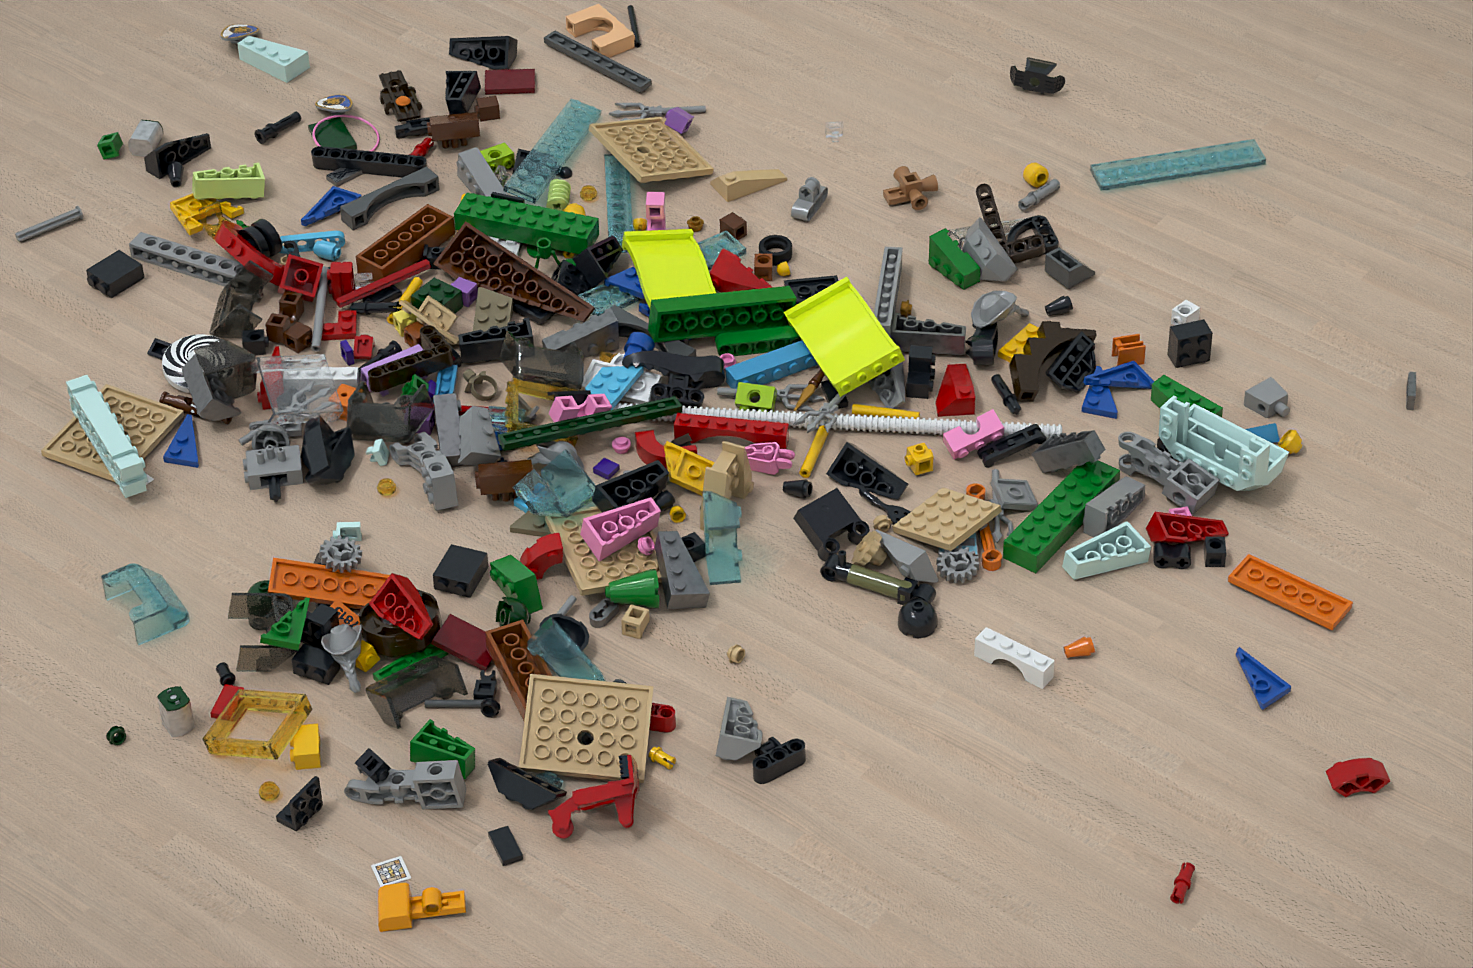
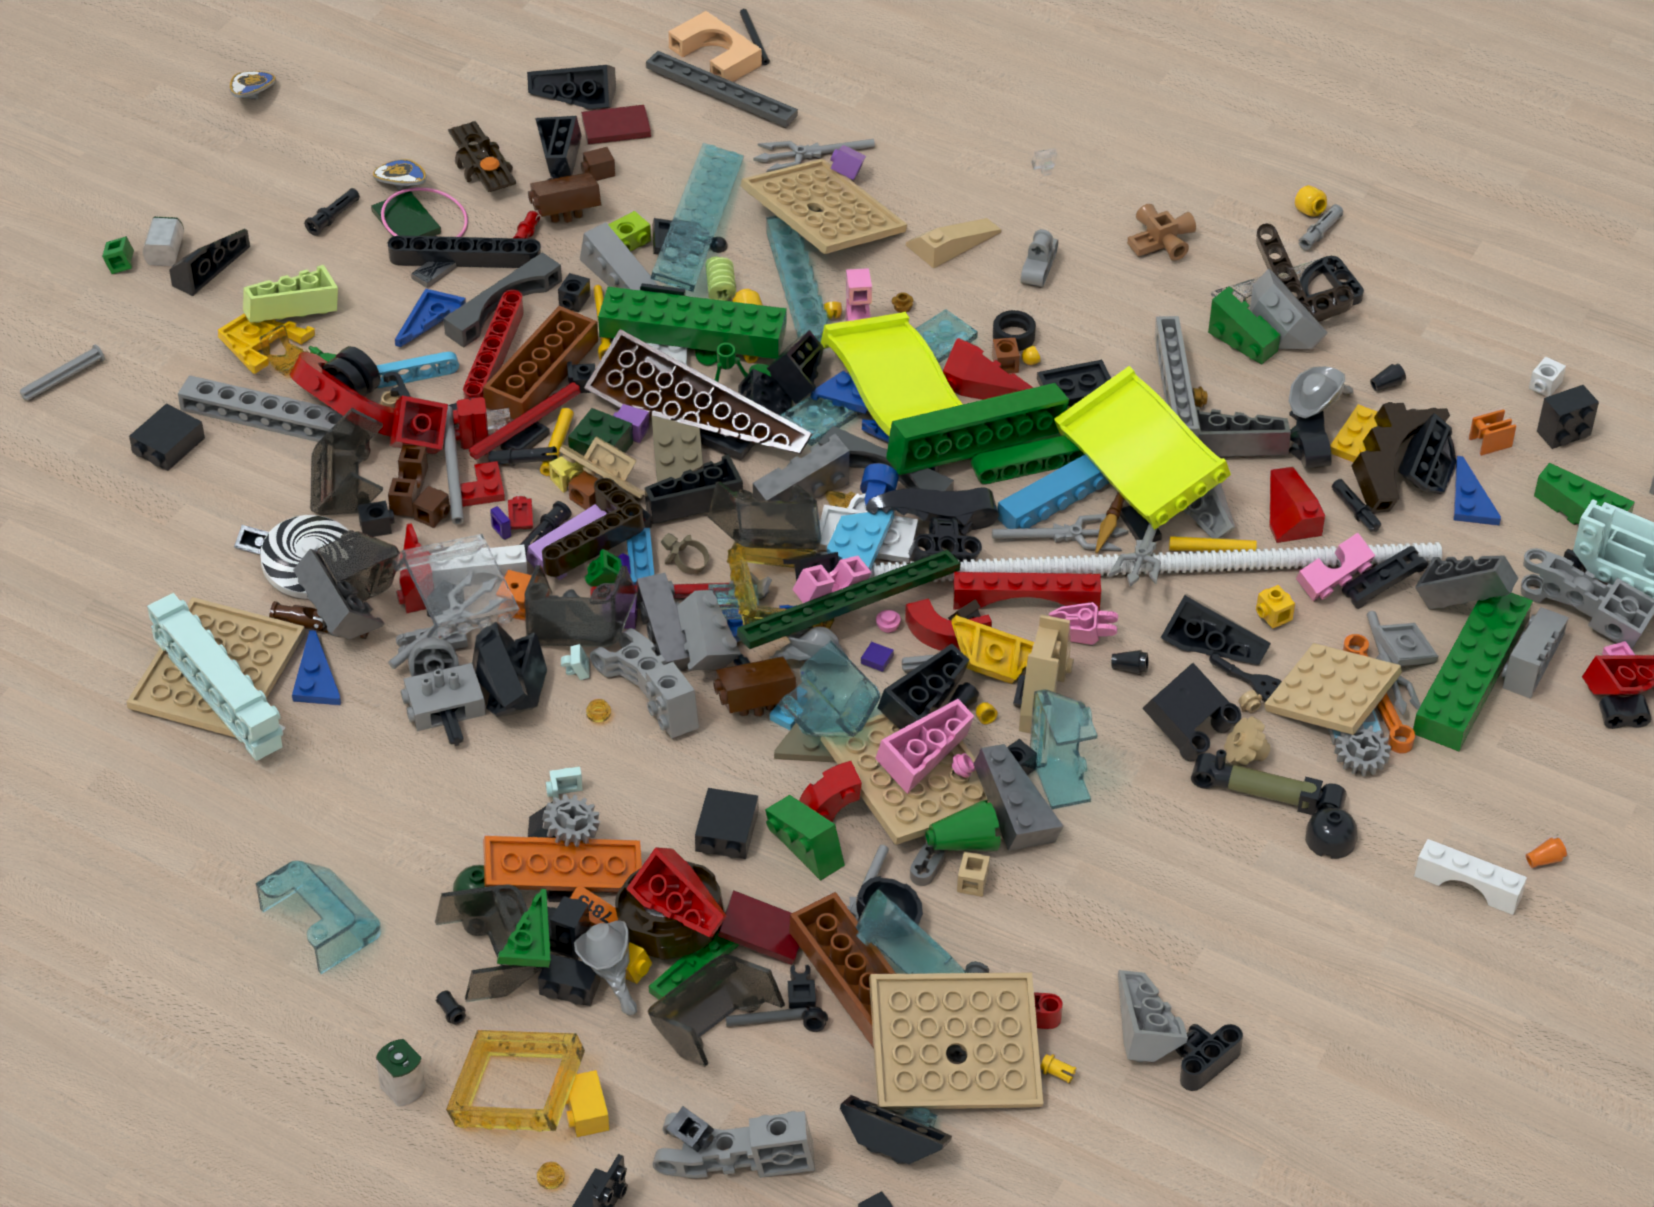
camera: 10 degrees left, 5 degrees up
(120, 736) = (324, 1114): dark green plate -> none
(175, 173) = (213, 286): black cone -> none
(224, 698) = (459, 1045): red tile -> none
(273, 58) = (304, 116): light aqua wedge -> none
(327, 250) = (439, 379): medium azure brick -> none
(376, 227) = (495, 343): none -> red beam
(412, 128) = (509, 198): black hinge -> none
(437, 745) = (764, 1090): green wedge -> none
(445, 197) = (574, 292): none -> black brick
(502, 175) = (642, 256): clear tile -> none
(511, 611) = (810, 882): dark green cylinder -> none
(588, 193) = (755, 270): clear yellow plate -> none
(618, 792) = (1026, 1133): red container -> none
(728, 359) = (997, 489): bright pink plate -> none
(734, 225) = (953, 300): reddish brown brick -> none
(736, 654) = (1113, 906): tan plate -> none
(747, 391) = (1058, 533): lime brick -> none
(813, 452) = (1136, 609): yellow piece -> none
(908, 558) = (1303, 751): light grey wedge -> none
(920, 372) = (1244, 485): black brick -> none
(1036, 77) = (1277, 69): black piece -> none
(1066, 268) = (1384, 325): dark grey slope -> none
(1107, 552) = (1548, 714): light aqua wedge -> none
(1124, 375) = (1496, 466): blue wing -> none
(1177, 164) = (1478, 173): clear light blue plate -> none

